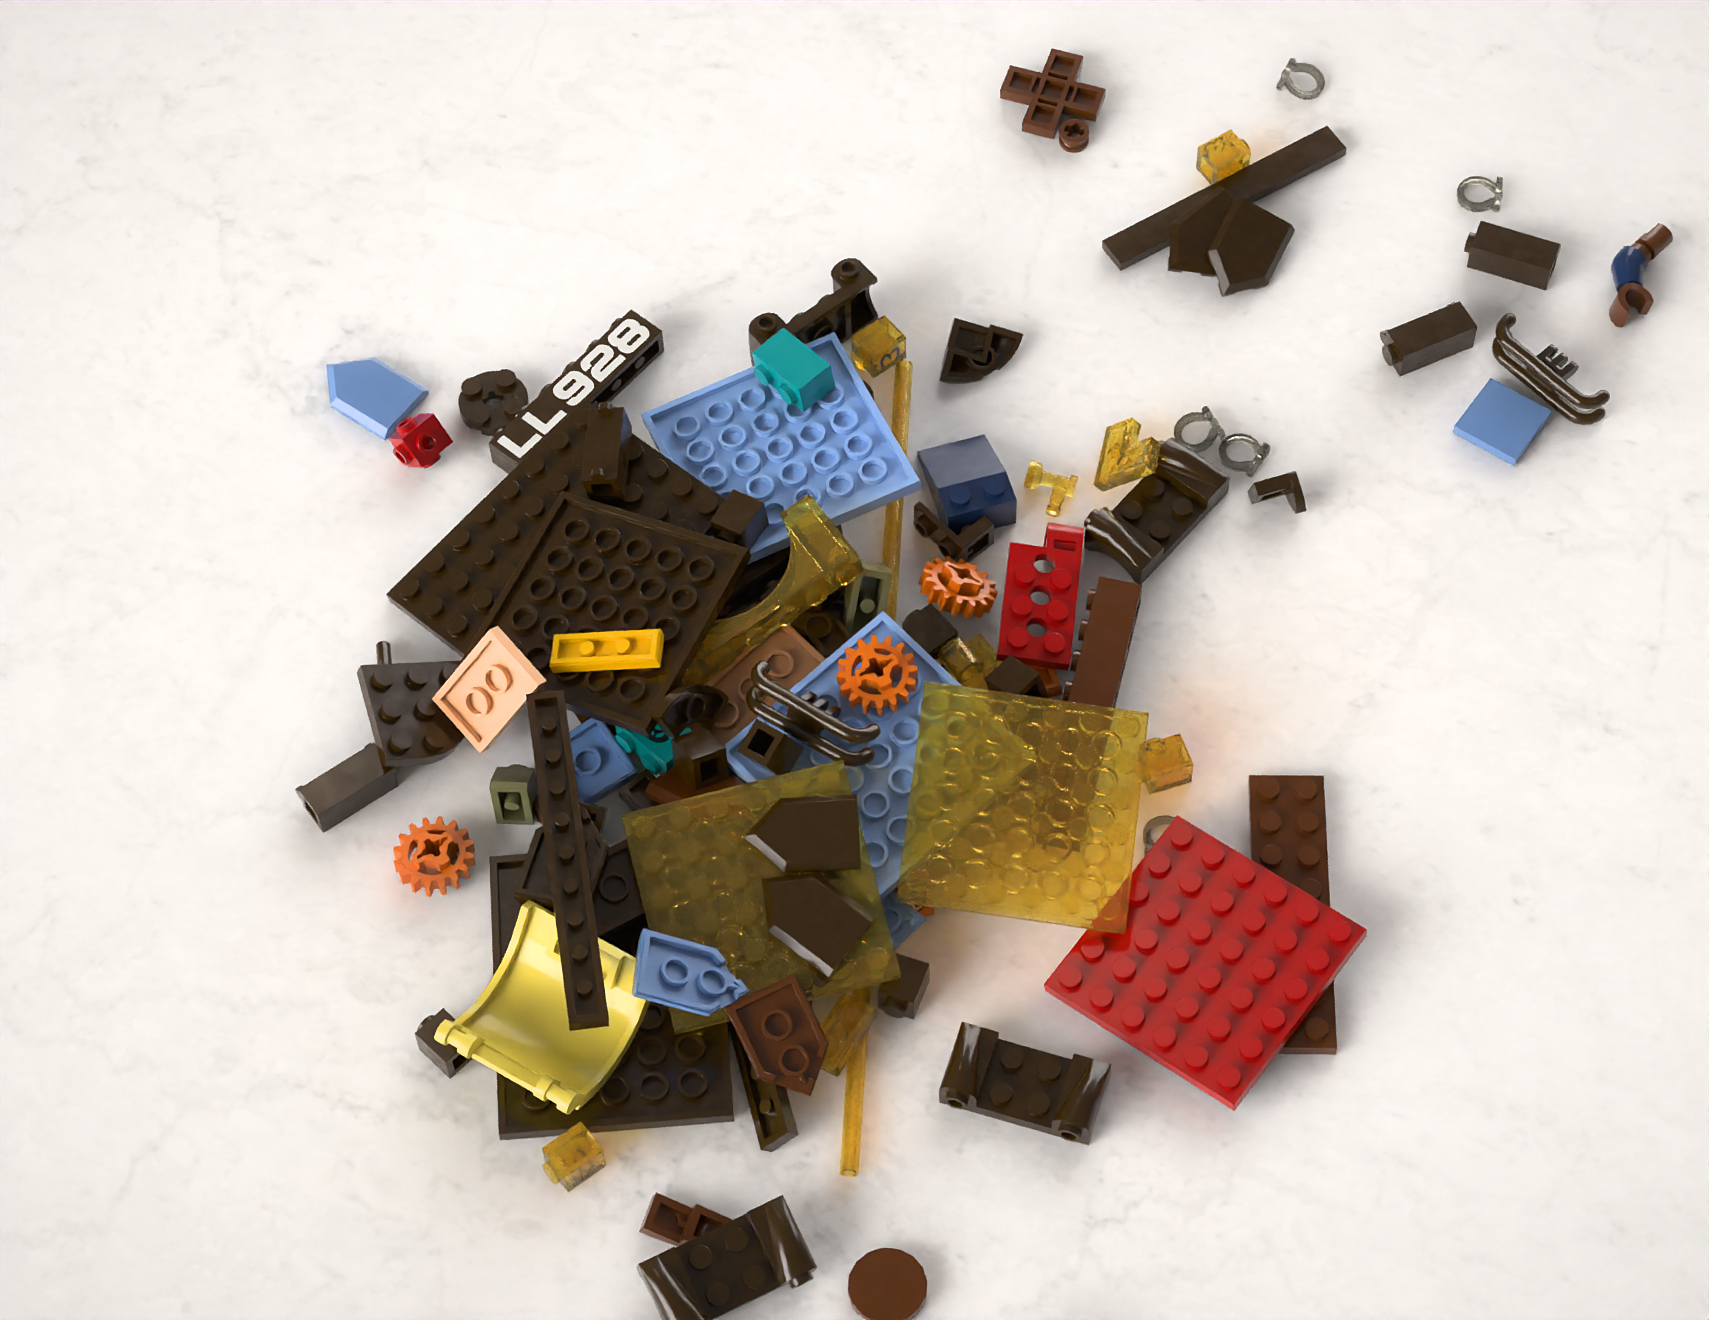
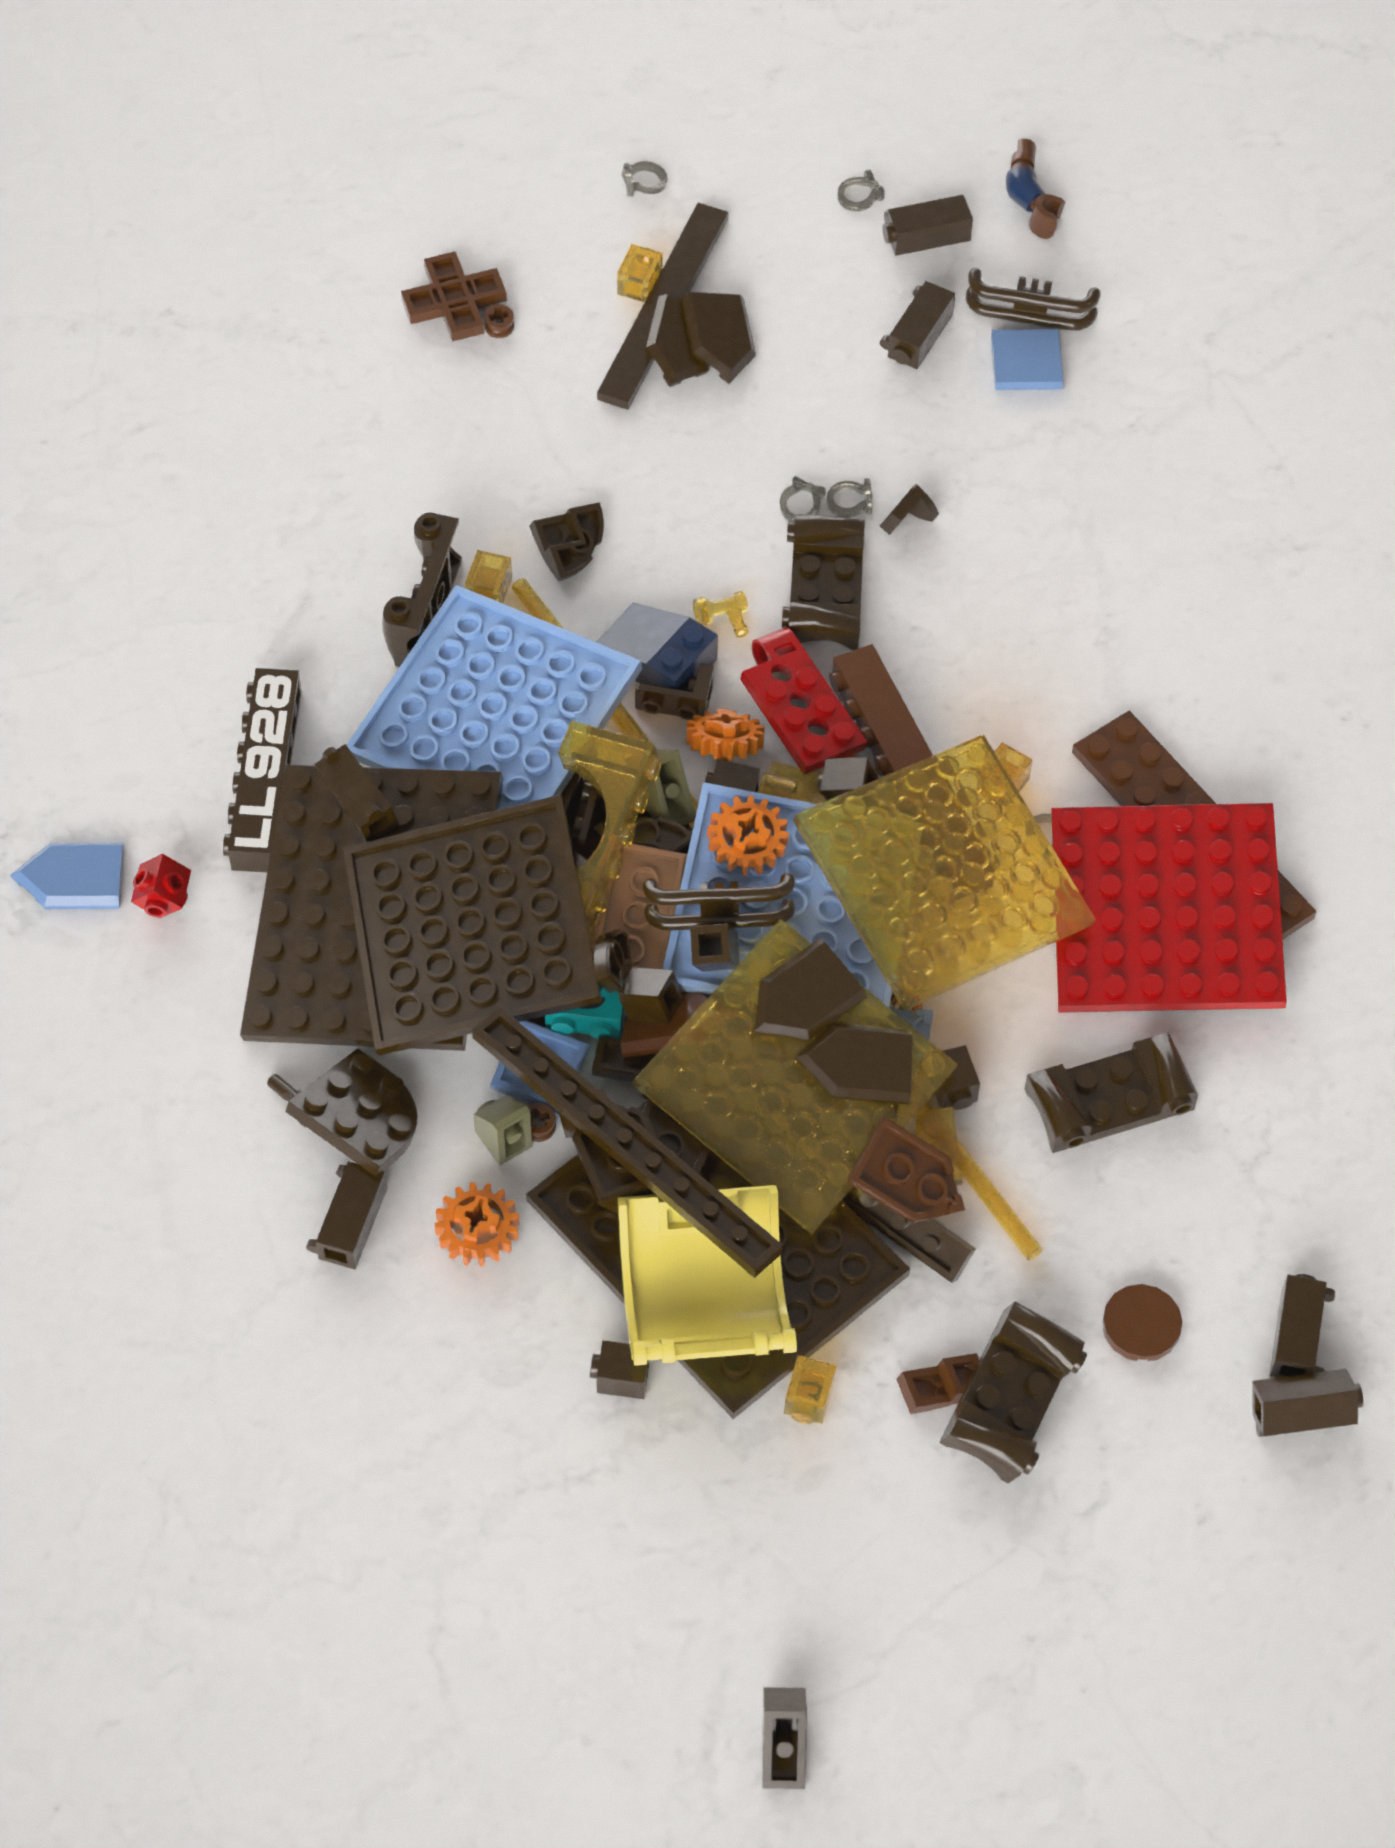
camera: 40 degrees left, 0 degrees up
(488, 689) = (425, 1049): light nougat plate -> none
(489, 386) = (189, 800): dark brown plate -> none
(607, 650) = (508, 952): yellow tile -> none
(683, 974) = (798, 1175): medium blue tile -> none
(740, 520) = (520, 778): dark brown brick -> none
(793, 370) = (455, 632): teal brick -> none
(1124, 456) = (768, 558): clear yellow plate -> none

